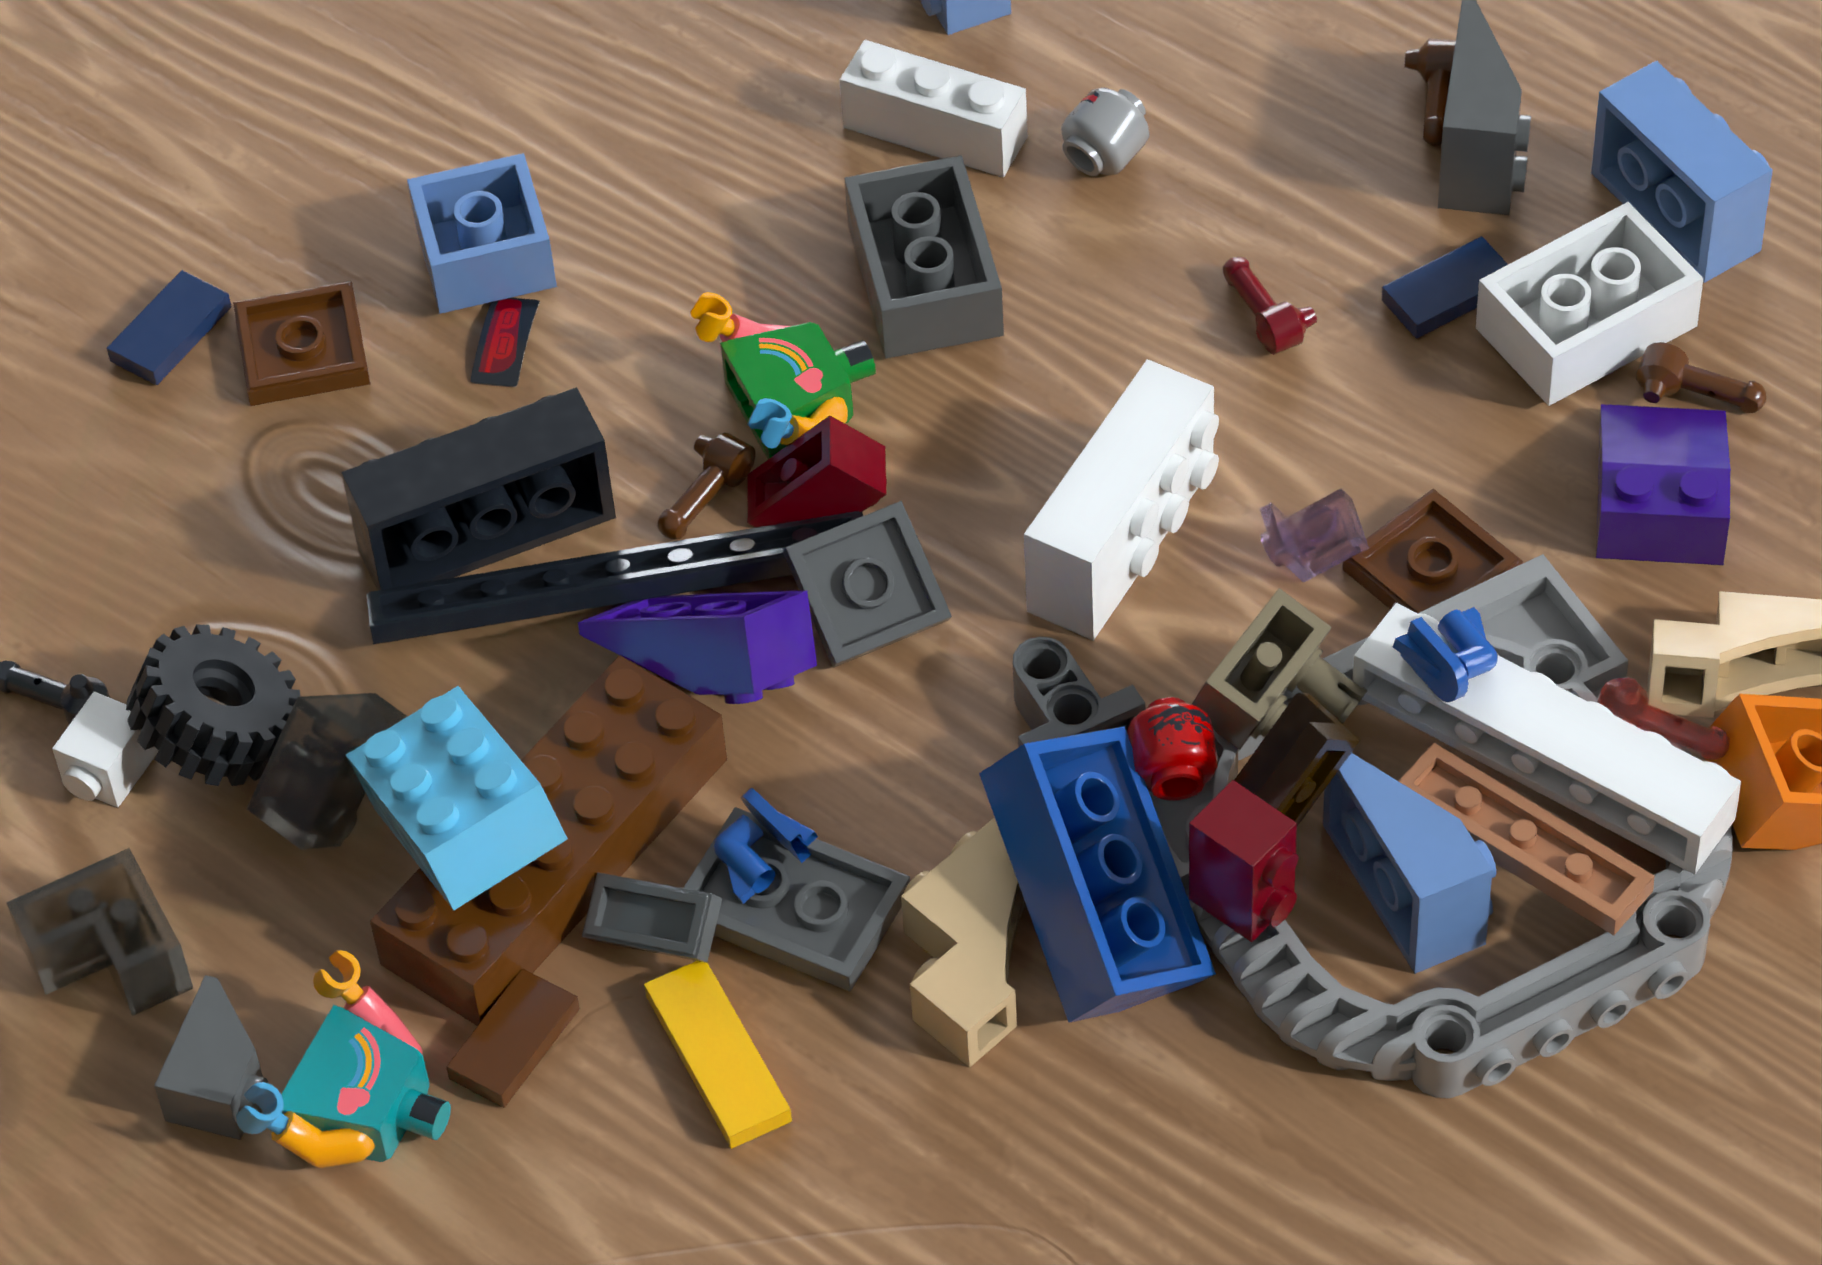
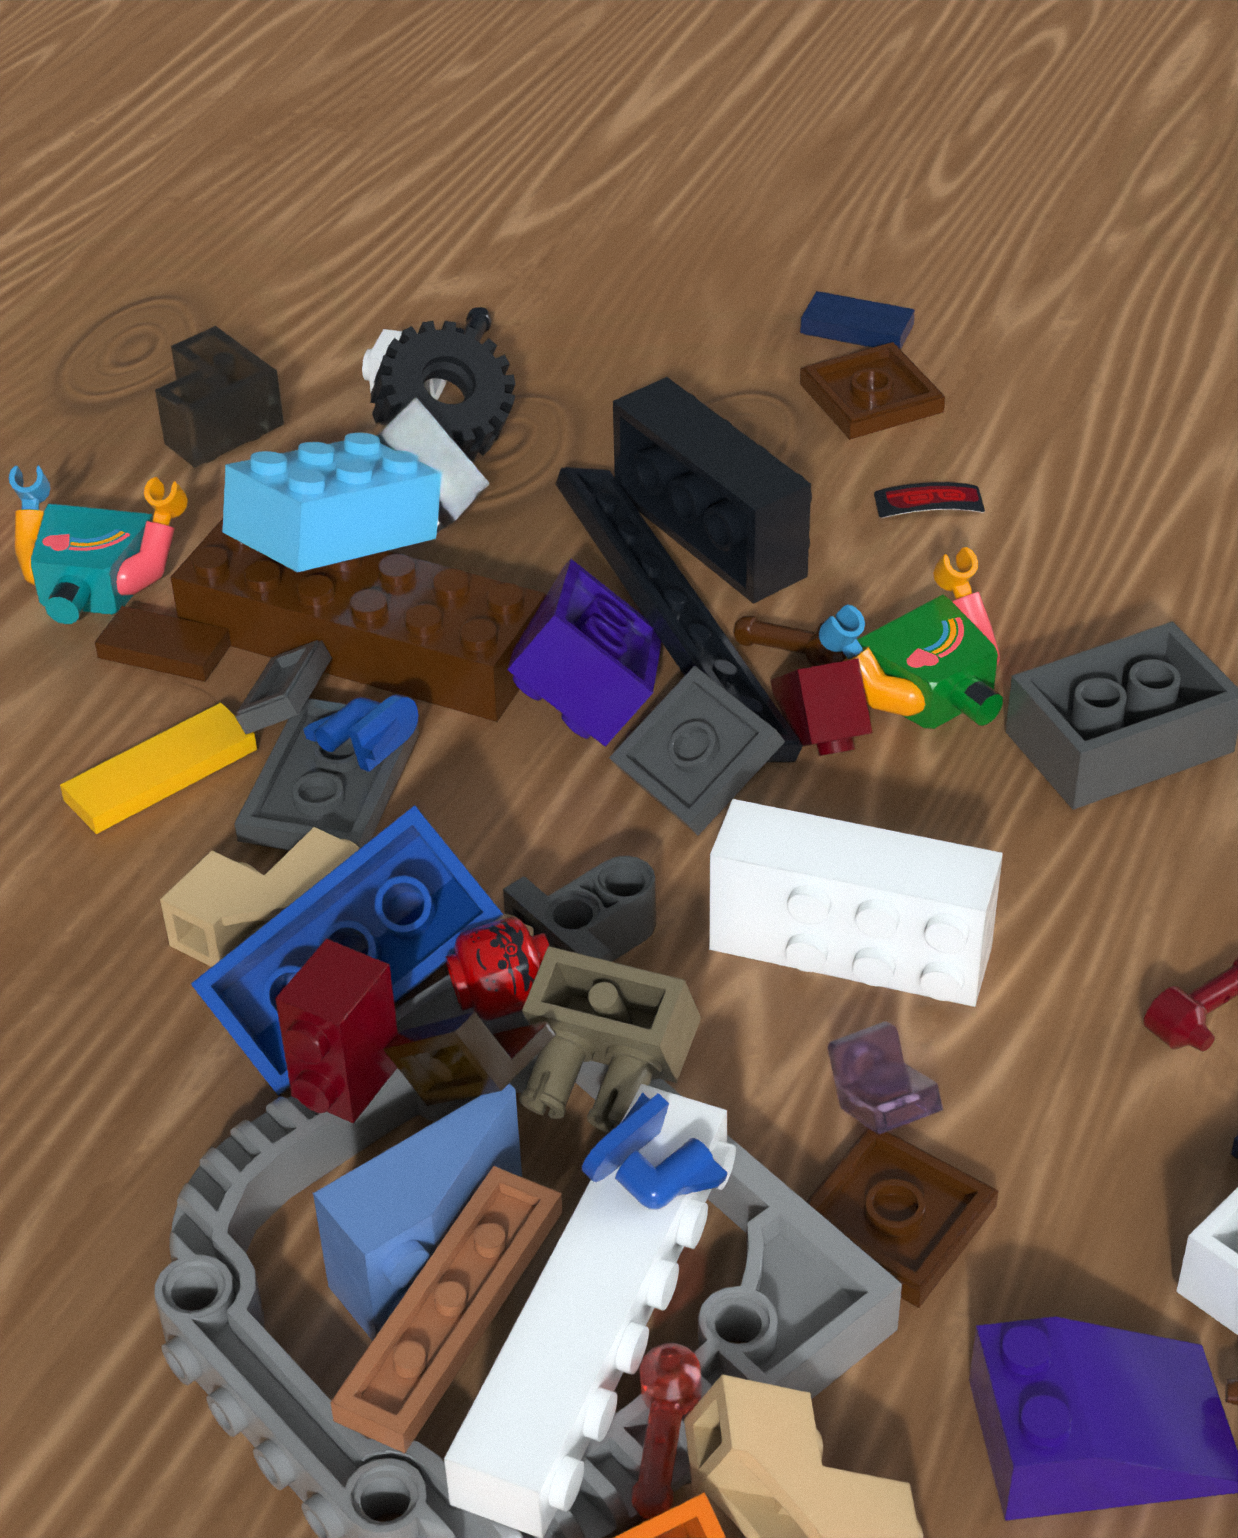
camera: 75 degrees right, 10 degrees down
(209, 1066) = (111, 474): dark grey slope -> none
(482, 233) = (1016, 440): medium blue brick -> none

